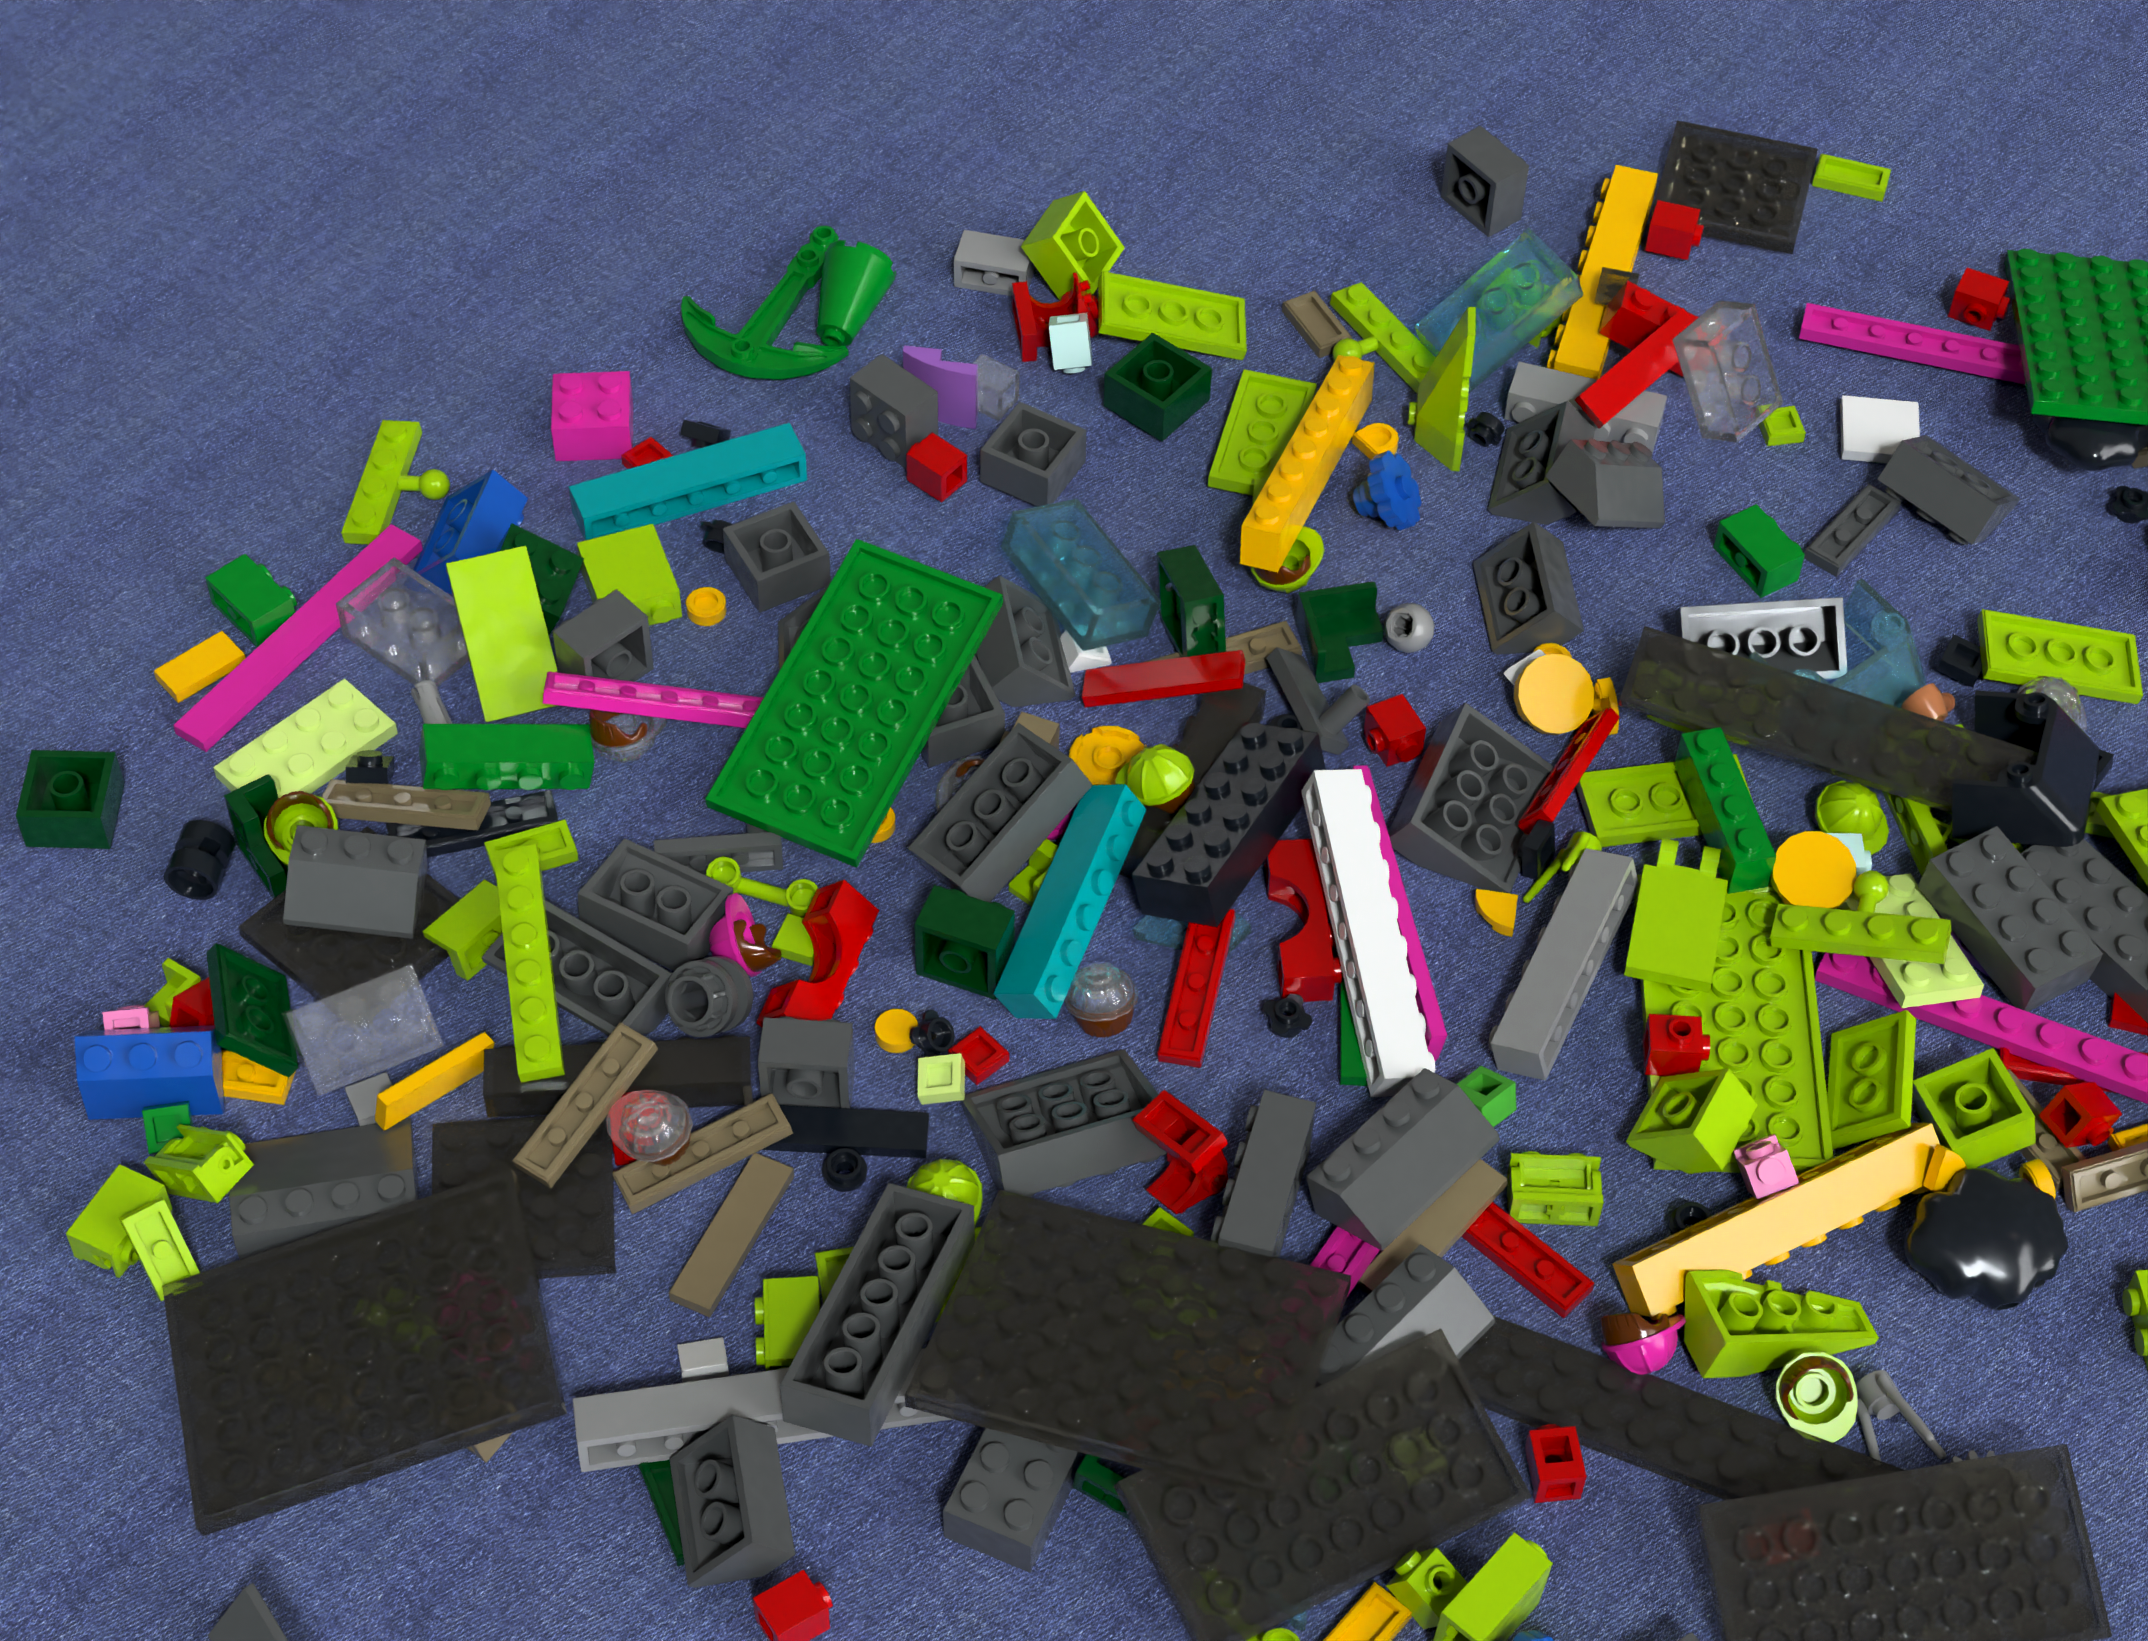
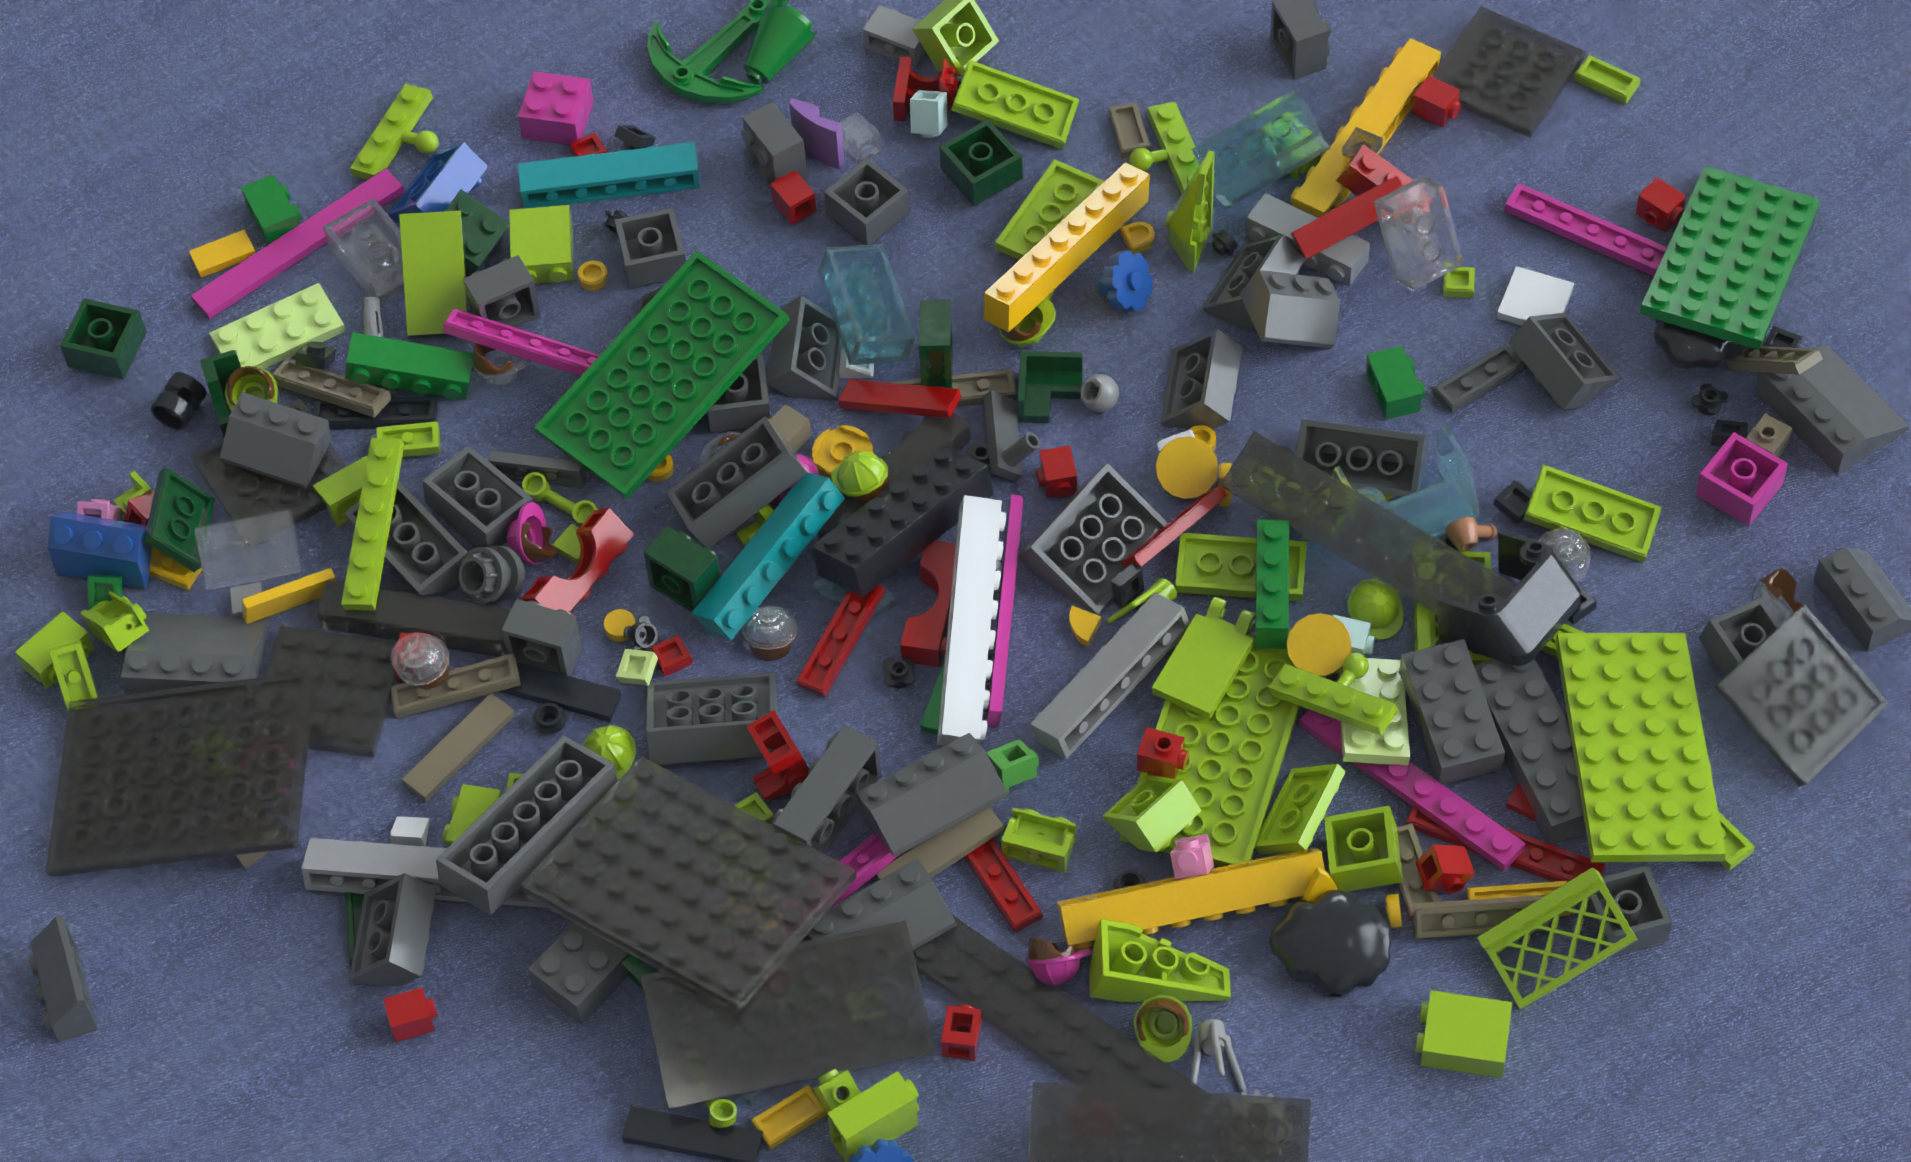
camera: 20 degrees right, 5 degrees up
(585, 1105) = (381, 635): dark tan tile -> none

